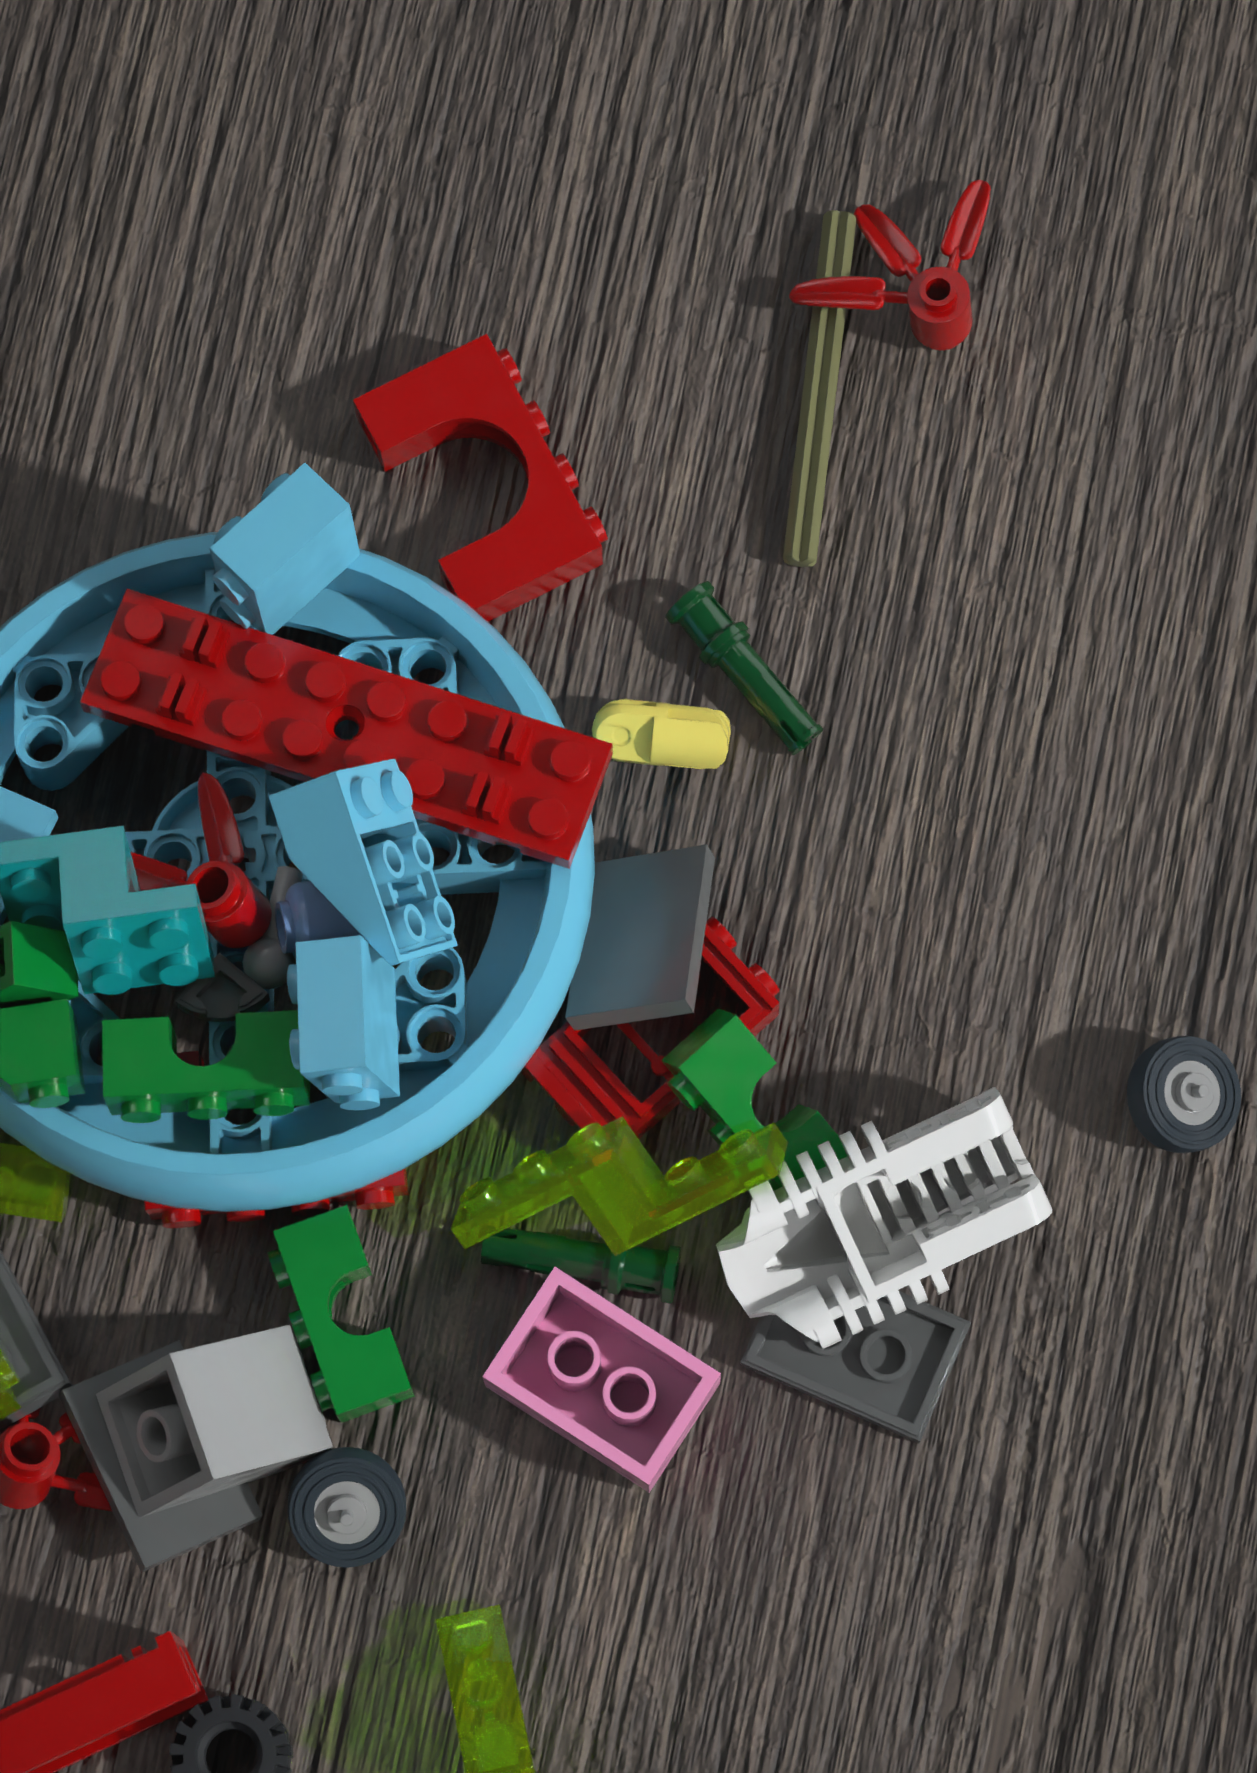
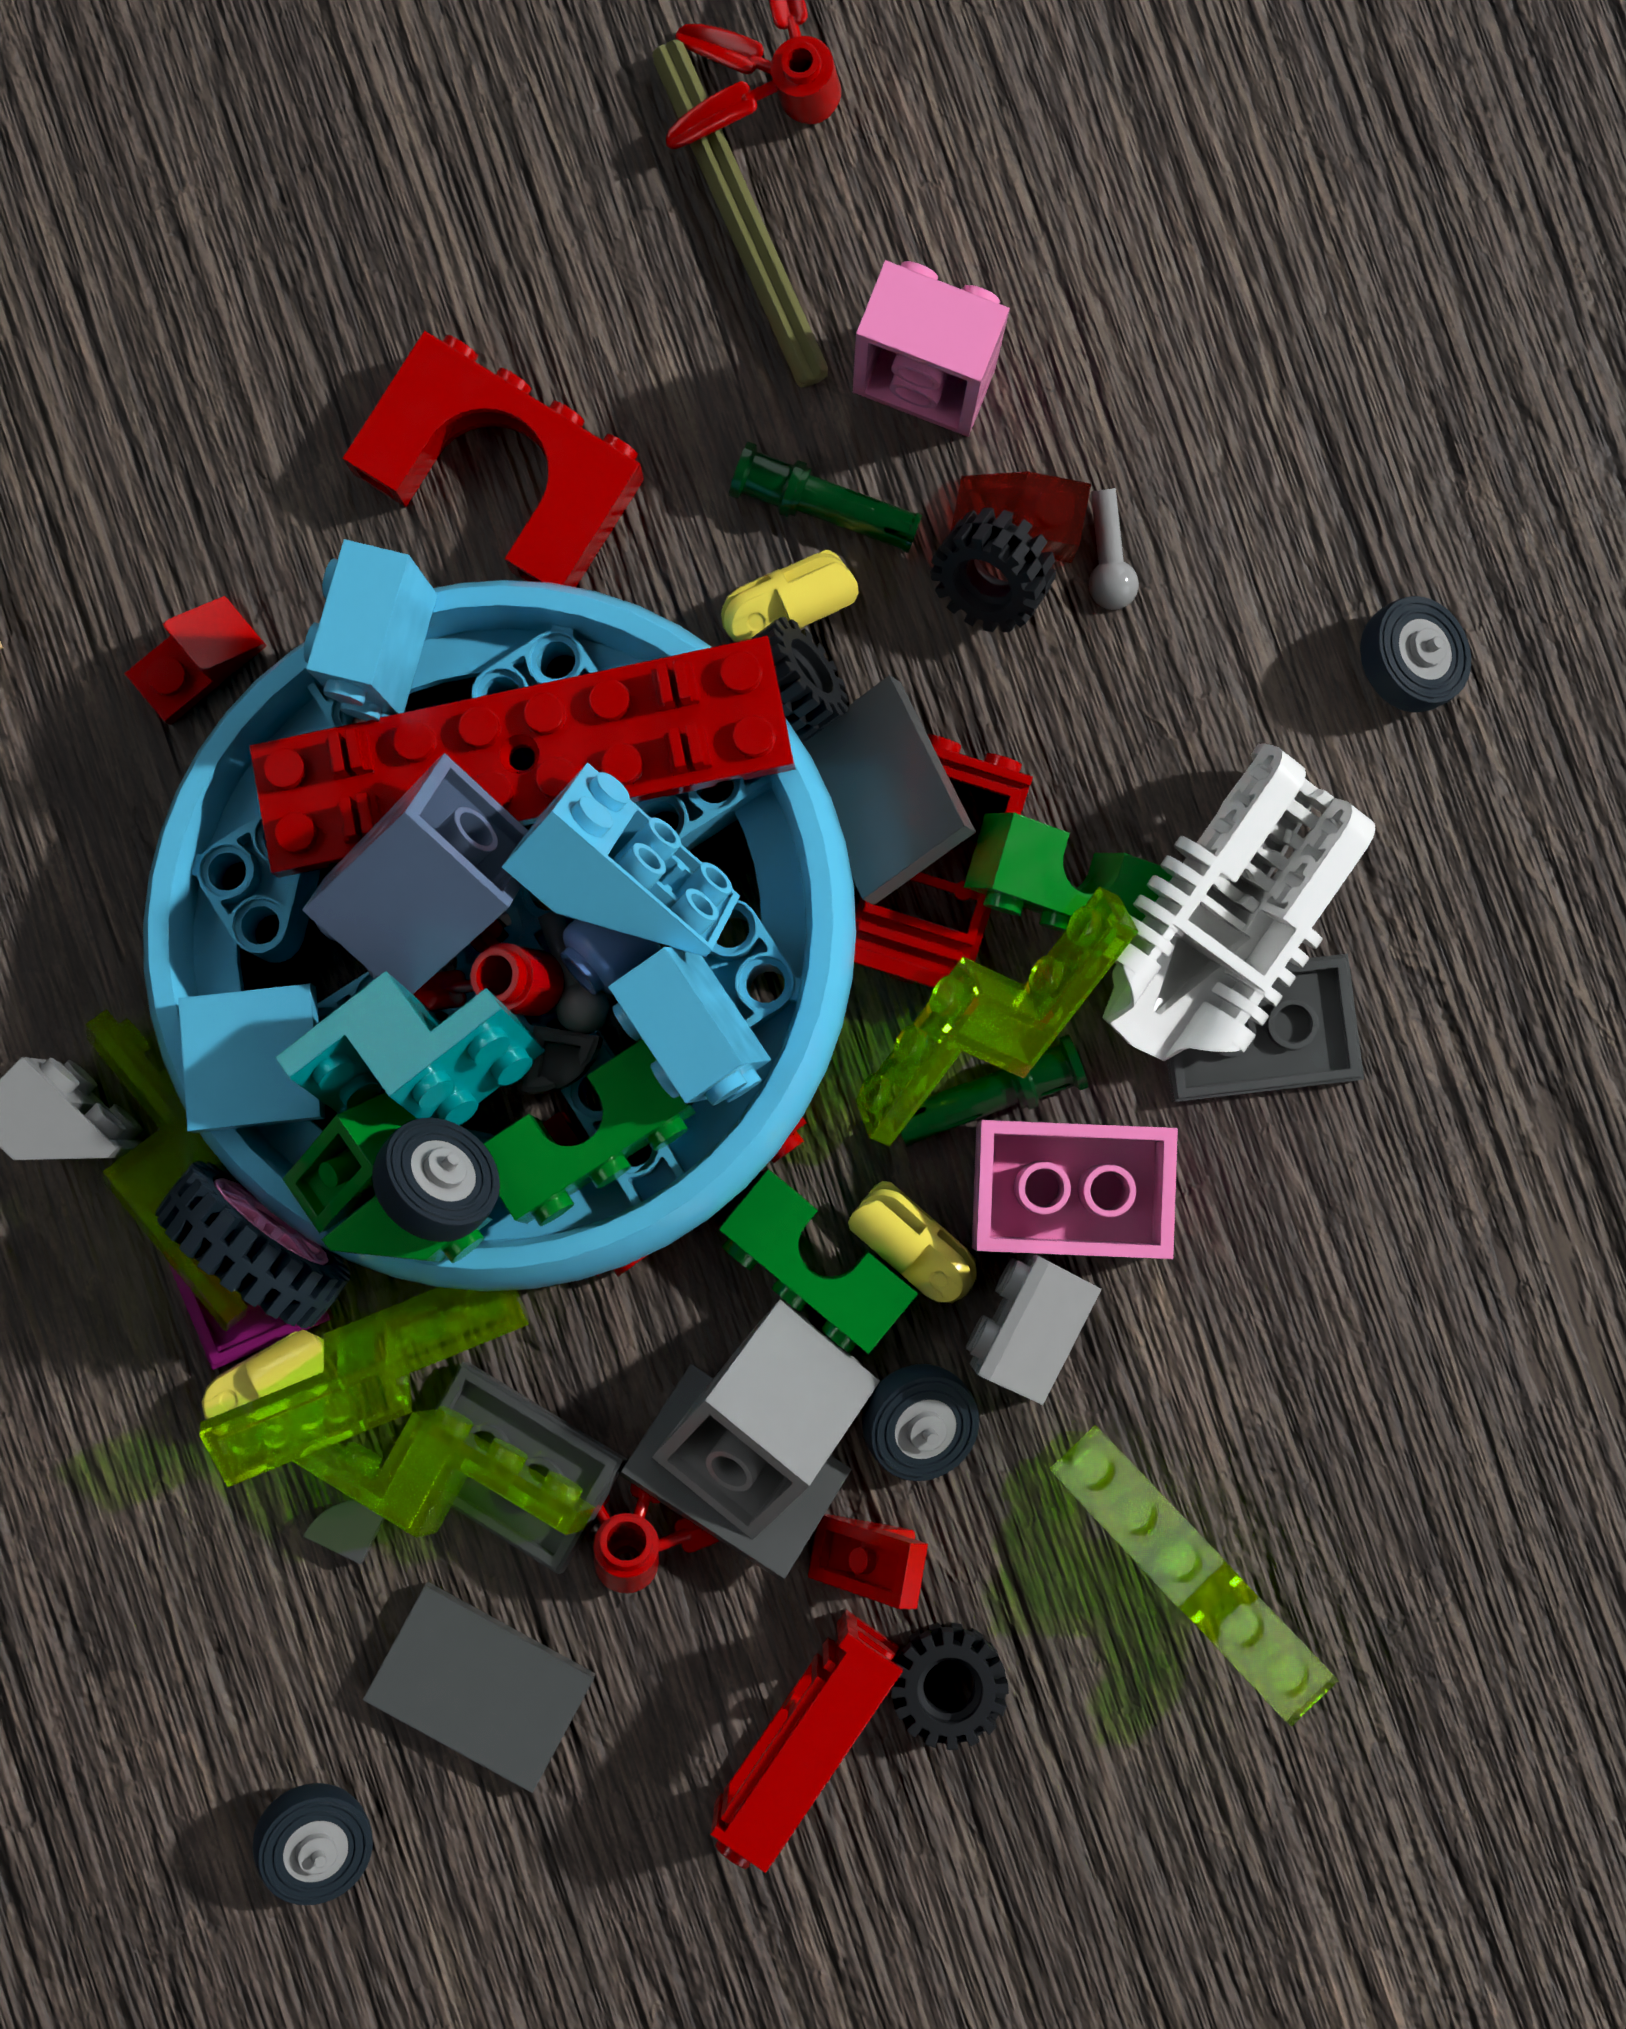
camera: 35 degrees left, 10 degrees up
(59, 1020) = (435, 1179): none -> black wheel
(130, 496) = (196, 658): none -> red slope
(199, 773) = (422, 878): none -> sand blue slope
(227, 1599) = (869, 1560): none -> red slope
(435, 1349) = (914, 1244): none -> light yellow arm
(494, 1477) = (1032, 1326): none -> light grey slope
(630, 805) = (806, 680): none -> black tyre
(875, 819) = (1007, 549): none -> black tyre
(902, 587) = (928, 346): none -> bright pink brick
(910, 777) = (1047, 502): none -> clear red slope
(958, 882) = (1113, 581): none -> light grey bar

